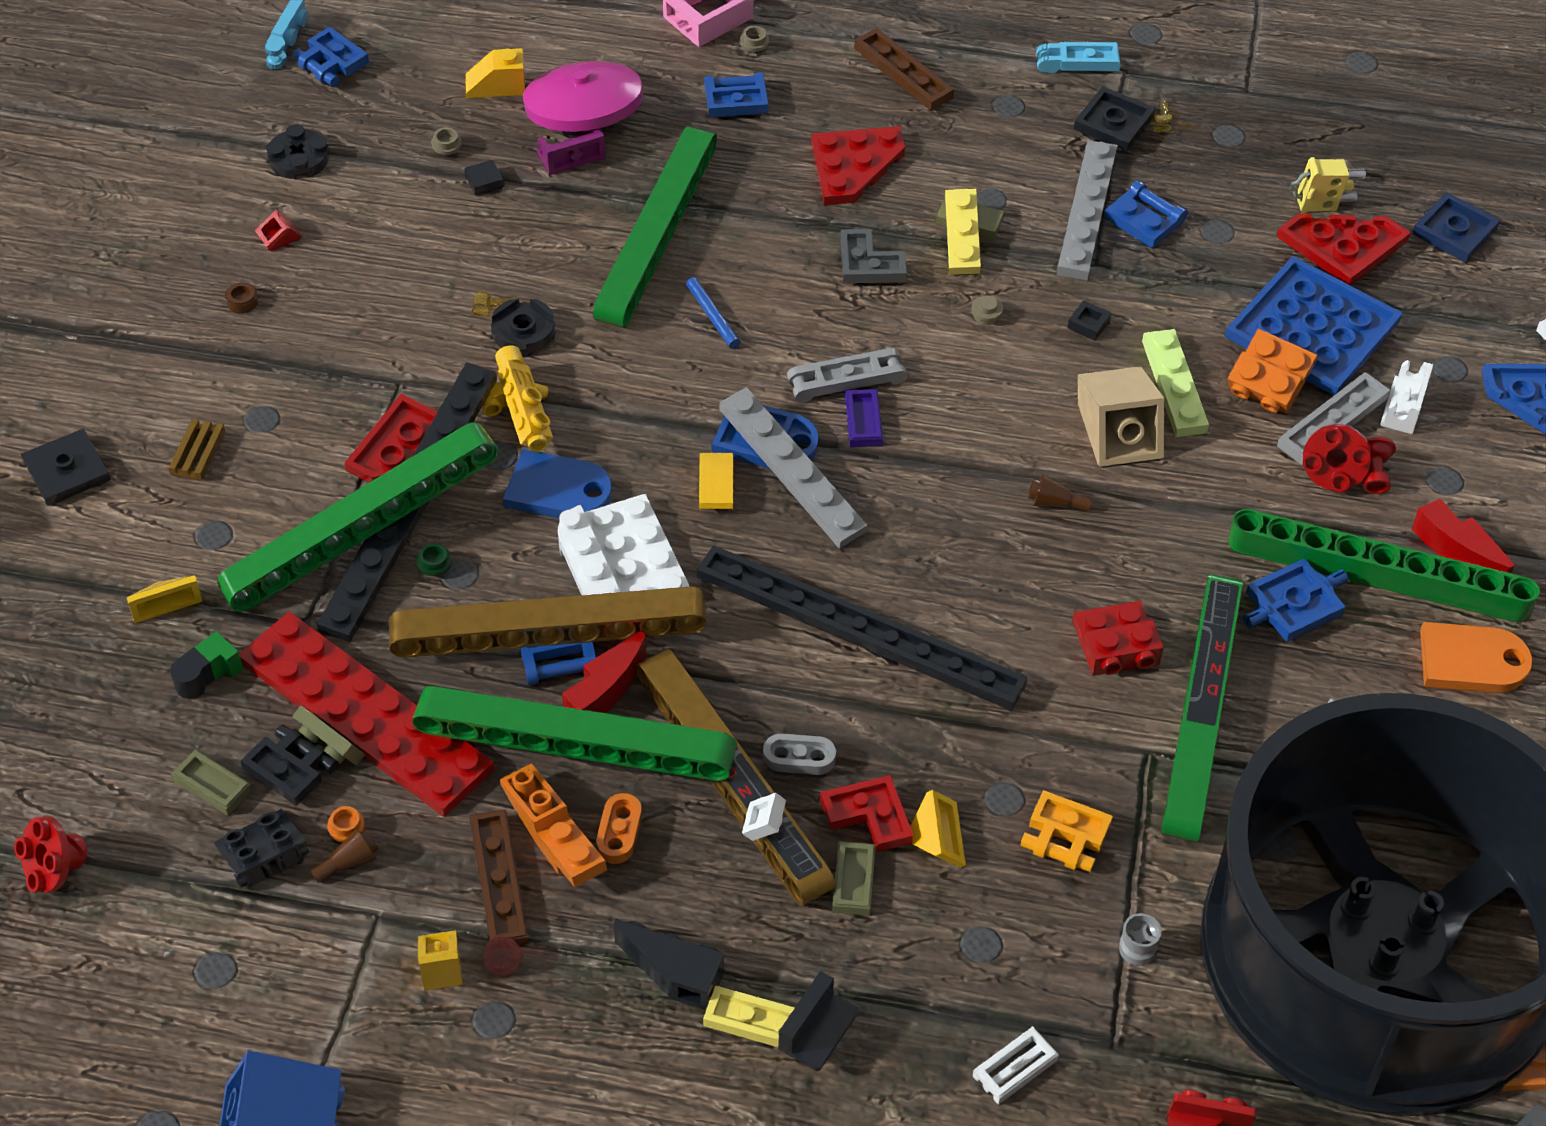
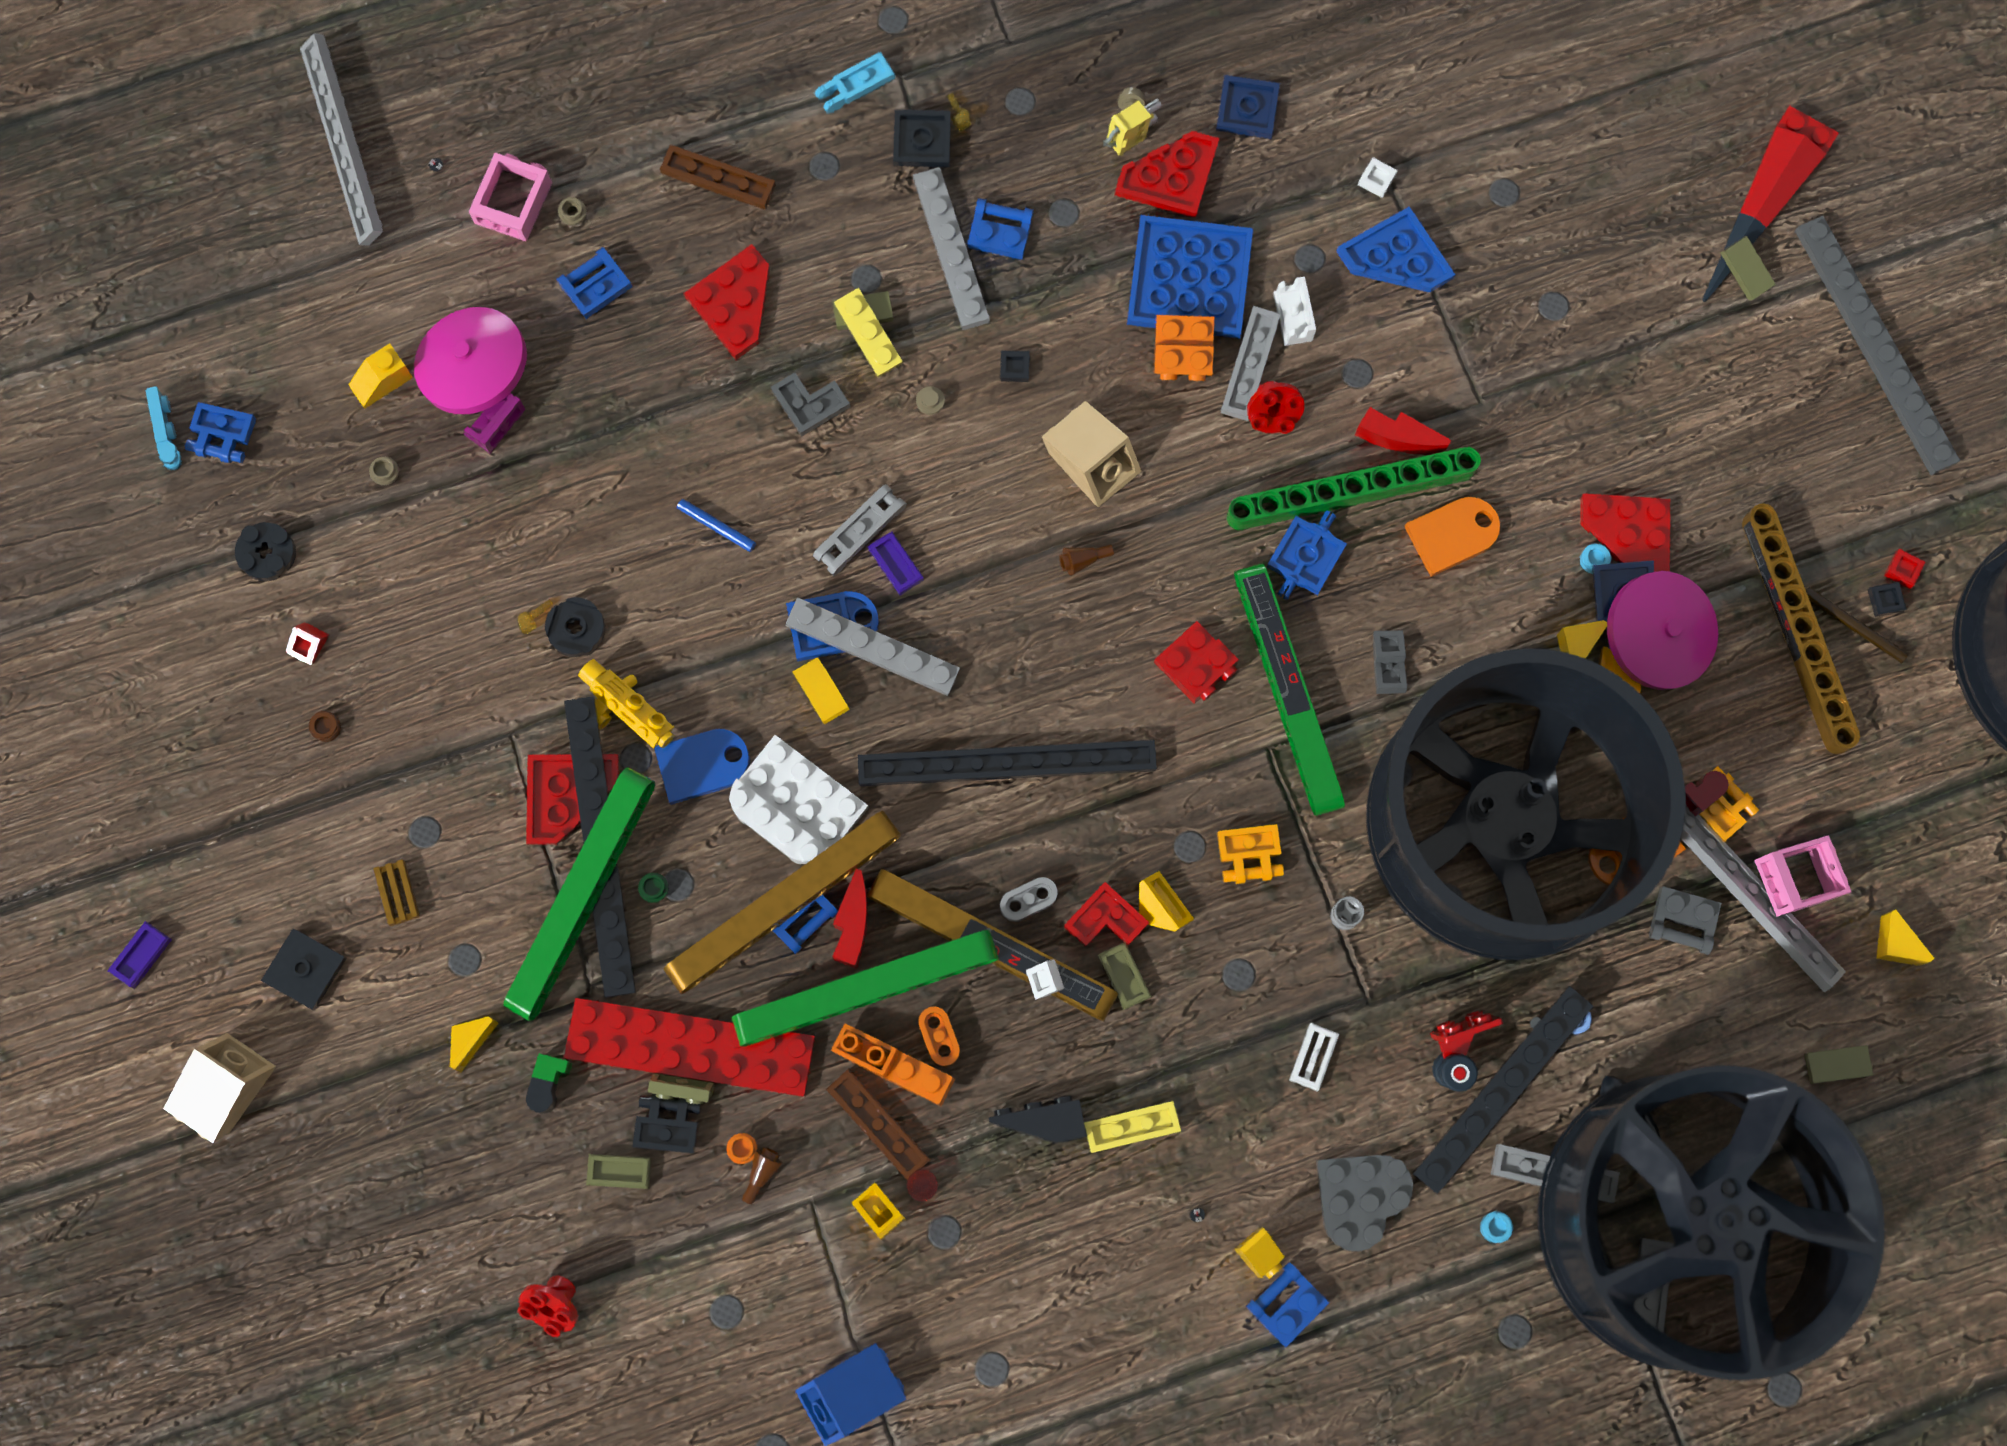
camera: 30 degrees left, 25 degrees up
(261, 843) = (693, 1202): black hinge -> none
(484, 177) = (440, 489): black tile -> none
(655, 227) = (617, 464): green beam -> none
(816, 1024) = (1174, 1114): black panel -> none
(1175, 383) = (1113, 392): yellowish green plate -> none
(1377, 481) = (1302, 382): red piece -> none

